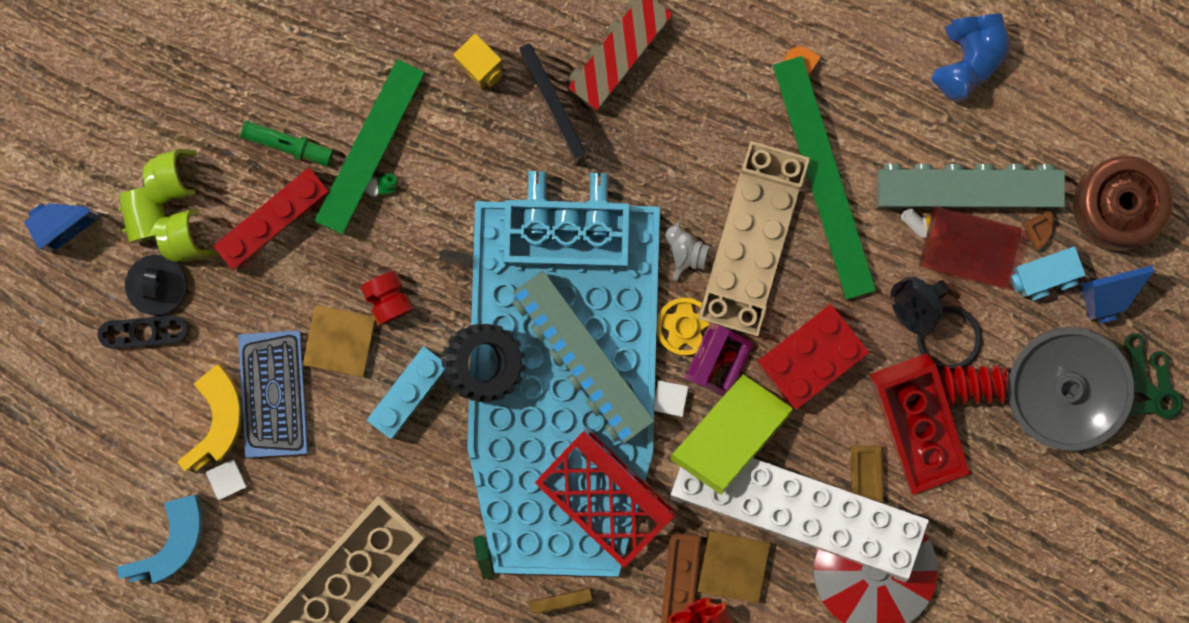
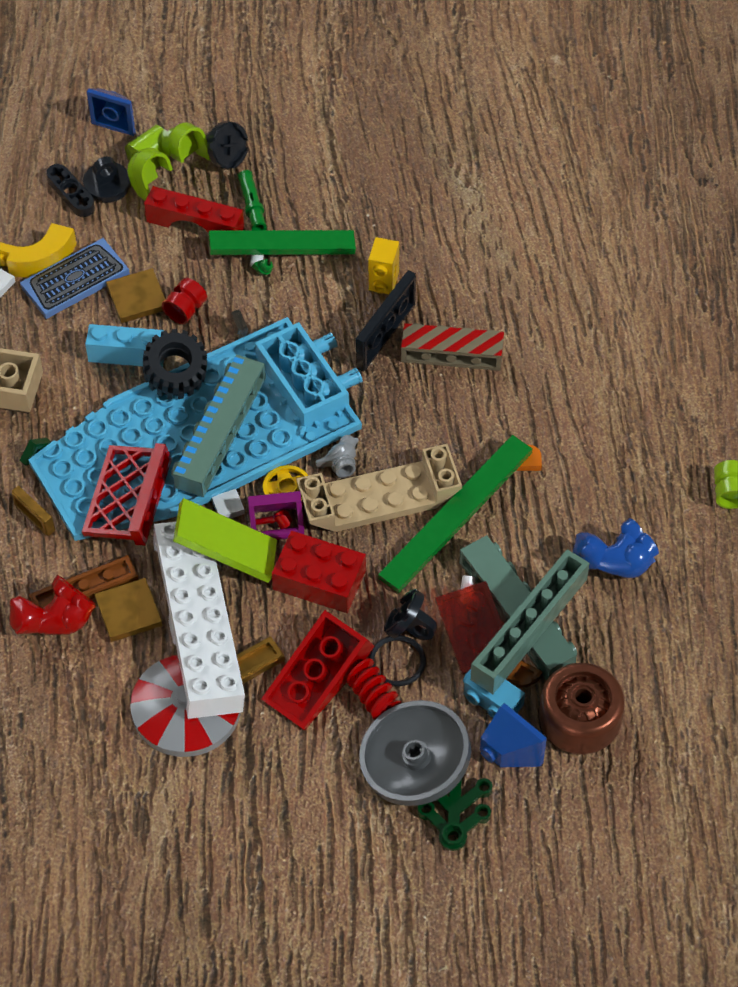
camera: 60 degrees right, 30 degrees down
(197, 128) = (227, 144): none -> black tile
(1016, 196) = (529, 621): none -> sand green brick

